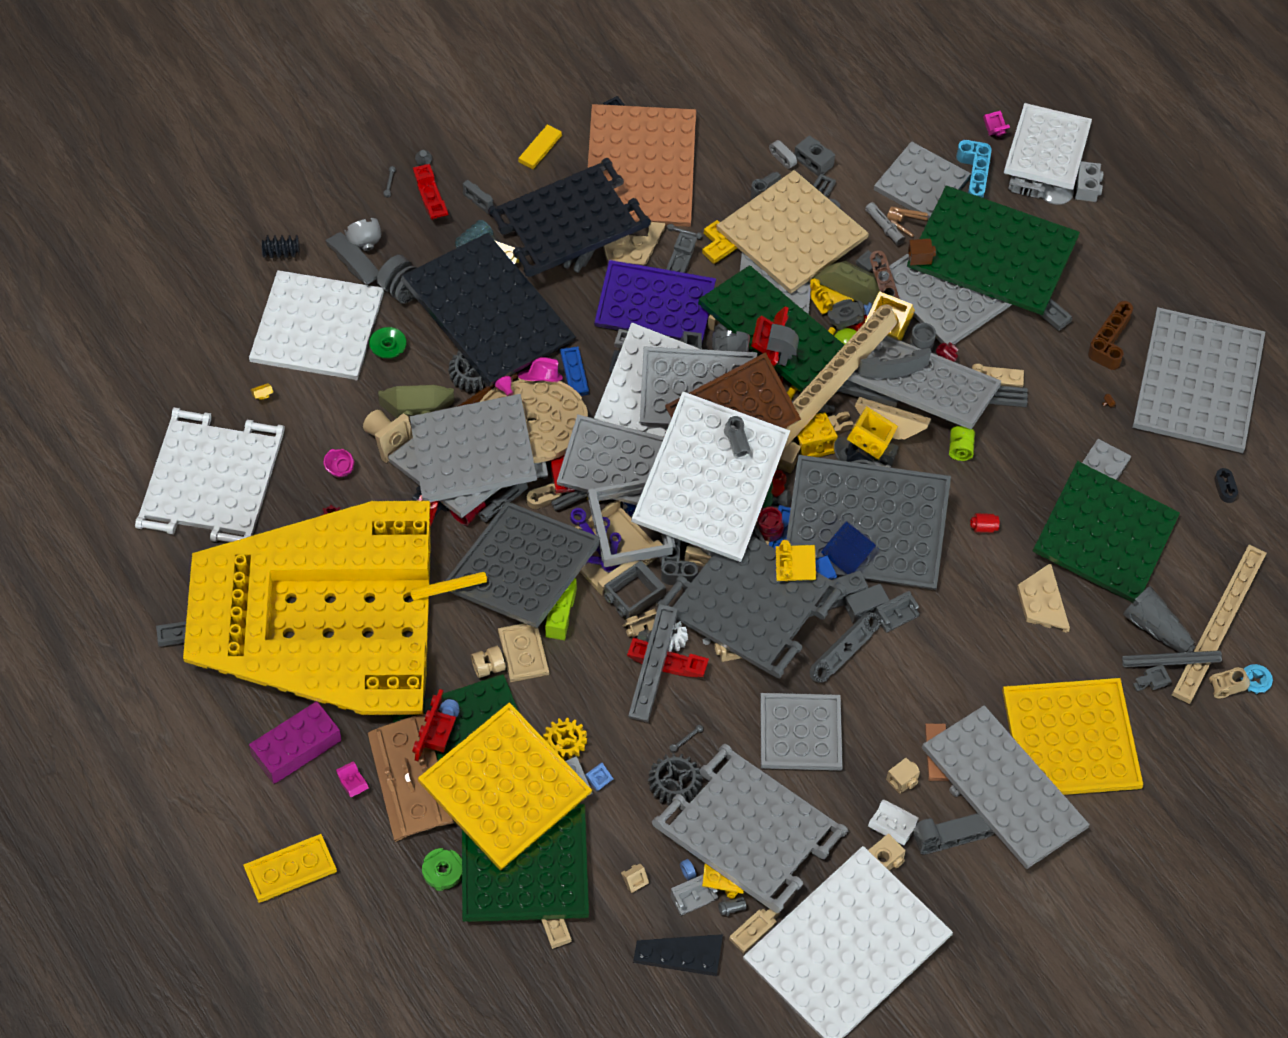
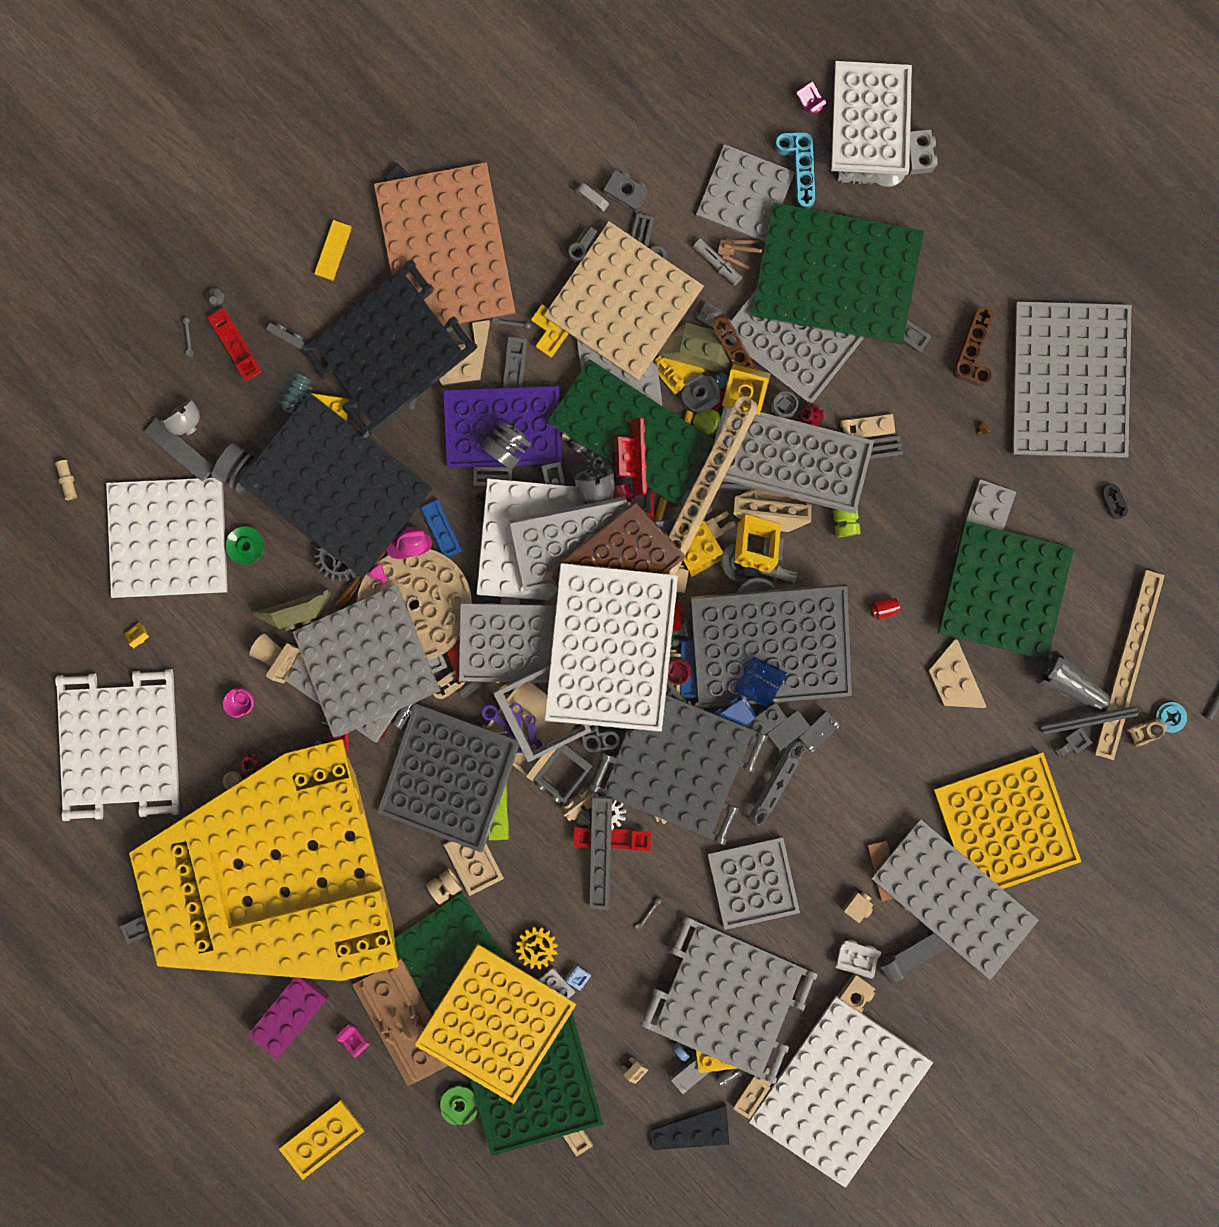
camera: 15 degrees left, 30 degrees up
(241, 260) = (66, 480): none -> tan pin
(280, 246) = (101, 455): black piece -> none
(436, 730) = (417, 977): red bracket -> none
(449, 585) = (385, 819): yellow axle -> none
(450, 707) = (422, 950): medium blue plate -> none
(655, 305) = (505, 444): none -> dark grey wheel
(663, 787) = (641, 969): dark grey gear -> none
(737, 437) = (628, 606): dark grey piece -> none
(783, 340) = (648, 470): dark grey brick -> none
(795, 562) = (714, 722): yellow hinge -> none
(894, 368) = (745, 467): dark grey slope -> none
(921, 251) = (765, 305): reddish brown brick -> none

